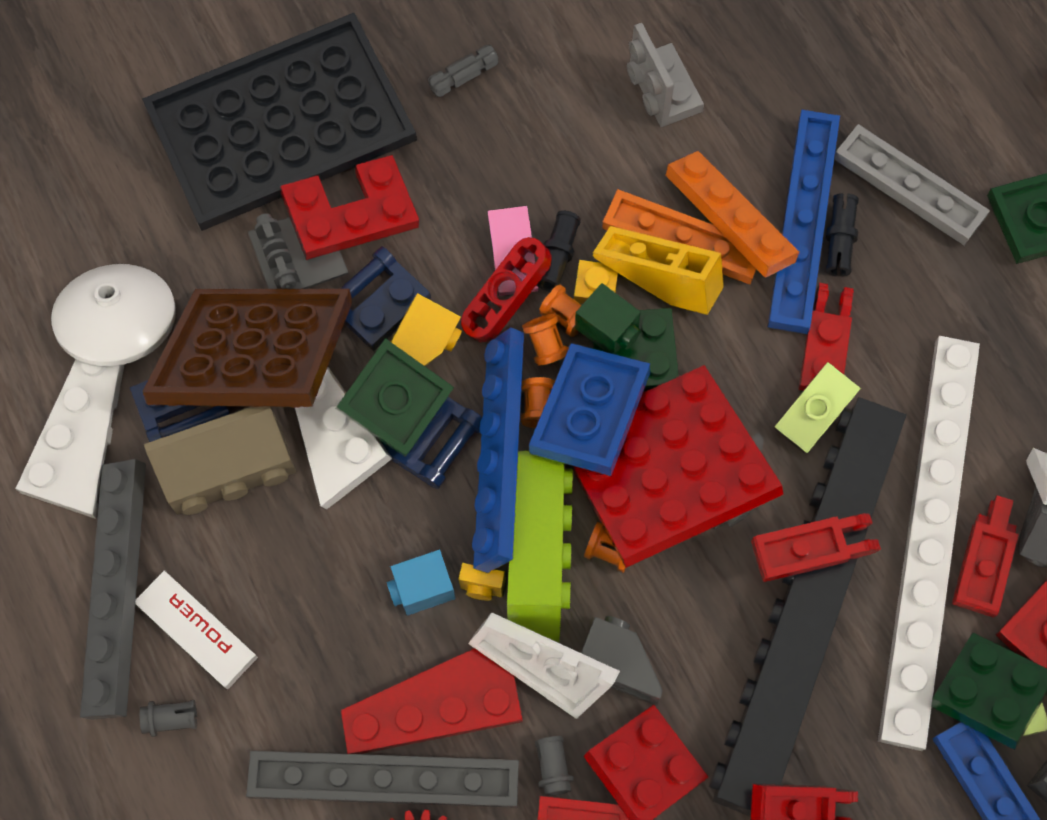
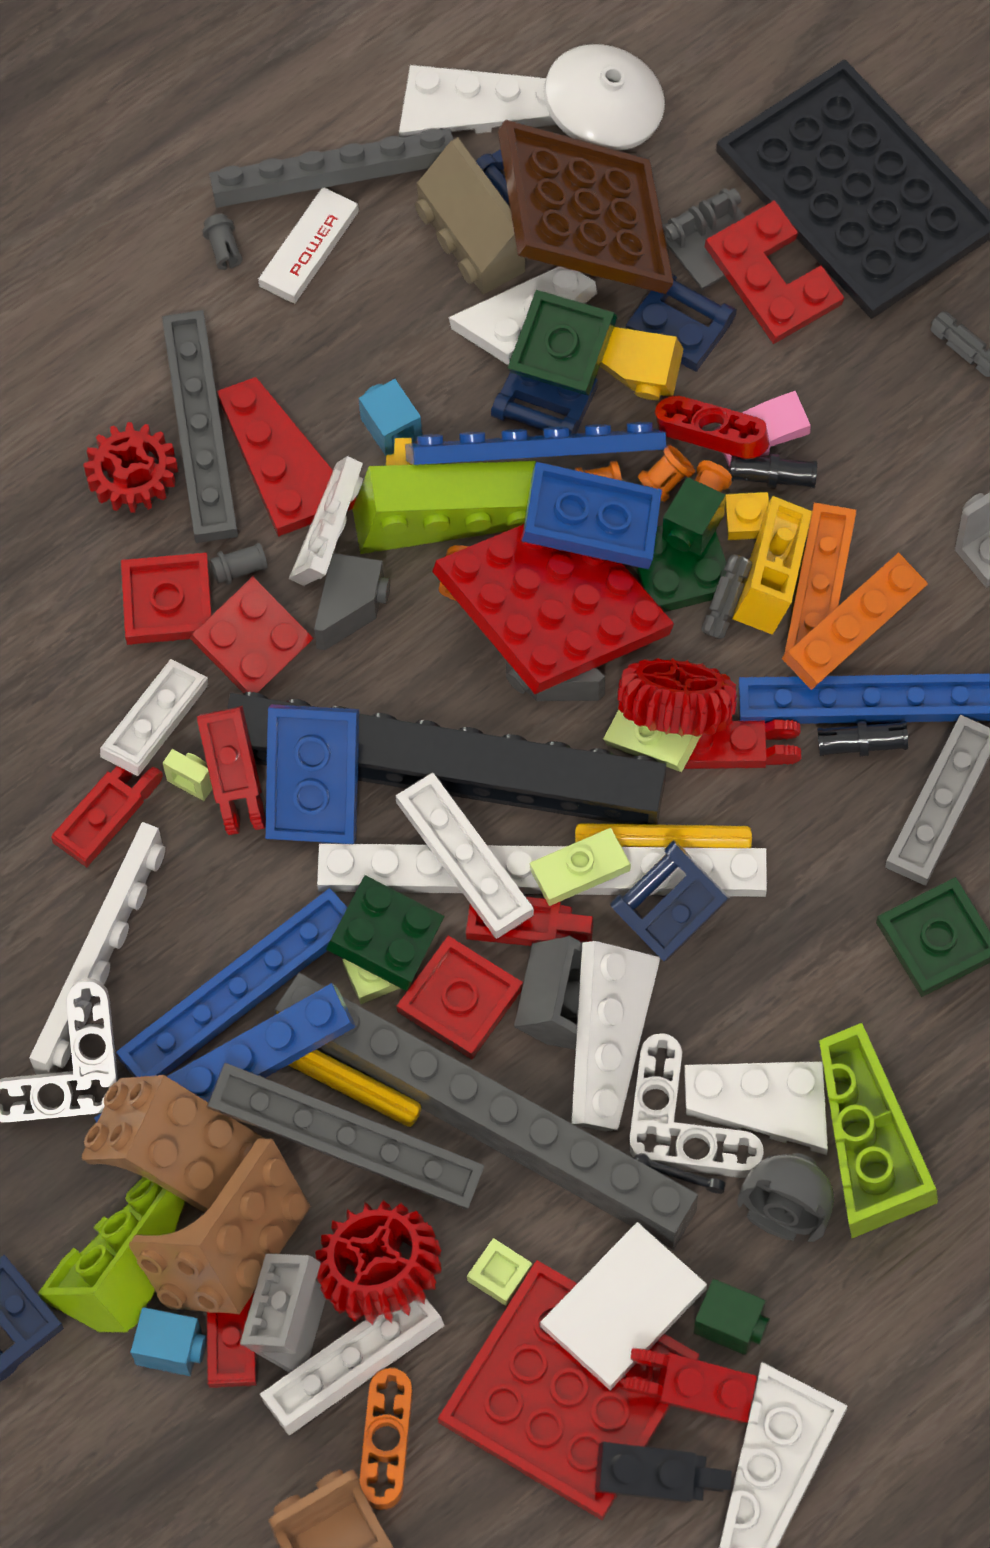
camera: 80 degrees right, 5 degrees down
(684, 314) = (726, 596): none -> dark grey axle
(801, 365) = (677, 697): none -> red gear
(811, 546) = (488, 731): red hinge -> none
(824, 728) = (312, 774): none -> blue plate
(912, 432) = (662, 835): none -> yellow axle
(929, 597) = (464, 855): none -> white plate
(950, 495) = (580, 866): none -> yellowish green plate
(1001, 419) = (680, 911): none -> dark blue plate

